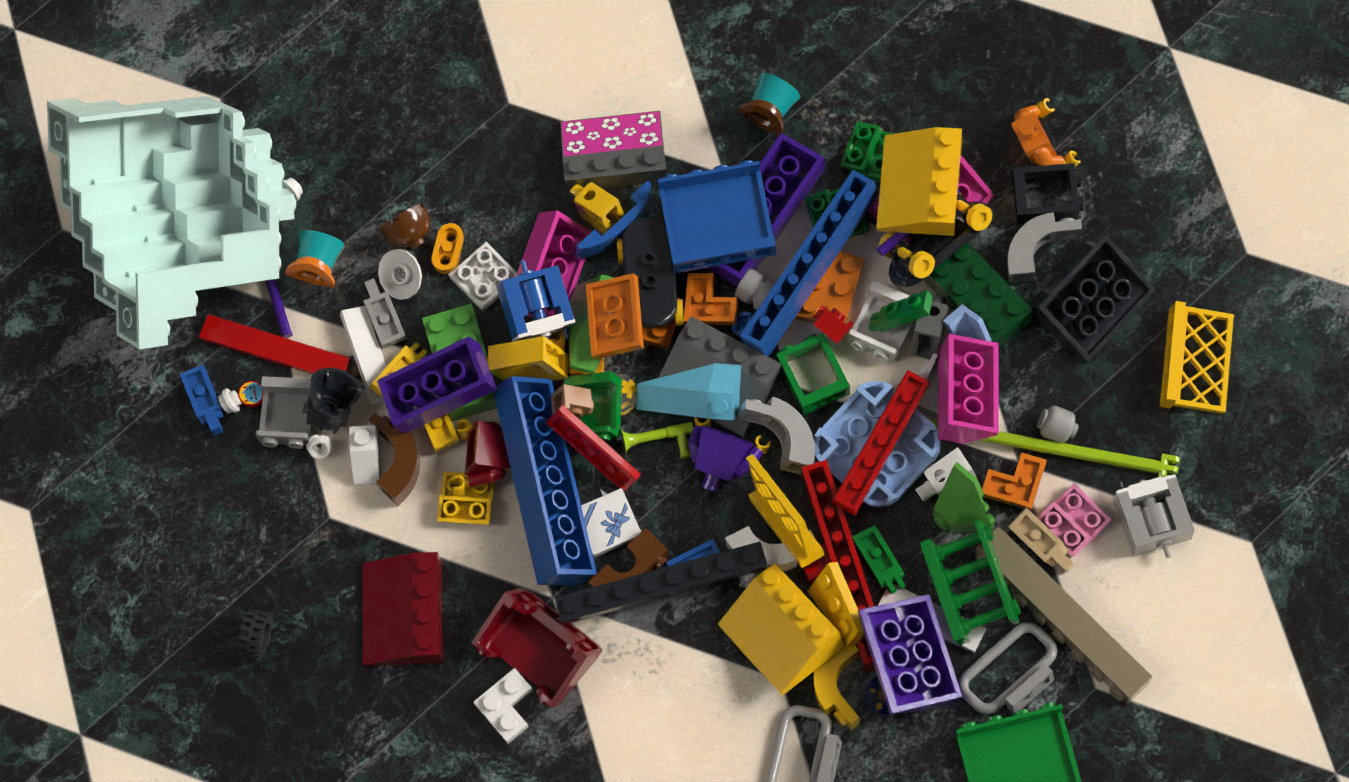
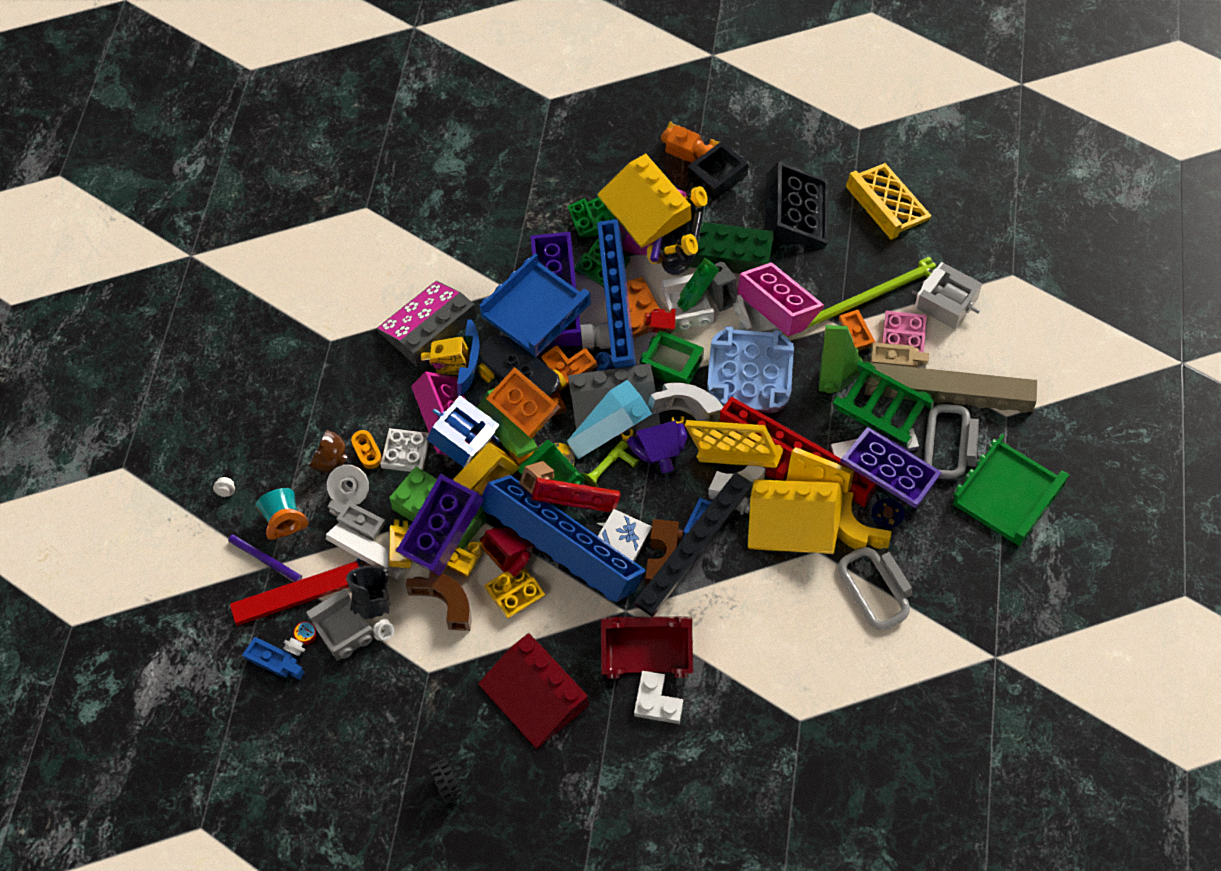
camera: 45 degrees left, 10 degrees down
(167, 204) = (143, 548): light aqua panel -> none
(365, 454) = (421, 612): white slope -> none
(770, 103) = (506, 227): hat -> none
(879, 559) = (820, 435): green hinge -> none
(881, 442) = (756, 363): red tile -> none
(939, 471) = (809, 357): white torso -> none
(967, 324) = (744, 261): light blue panel -> none
(1031, 237) = (734, 209): light grey arch -> none
(1057, 424) = (844, 286): light grey head -> none

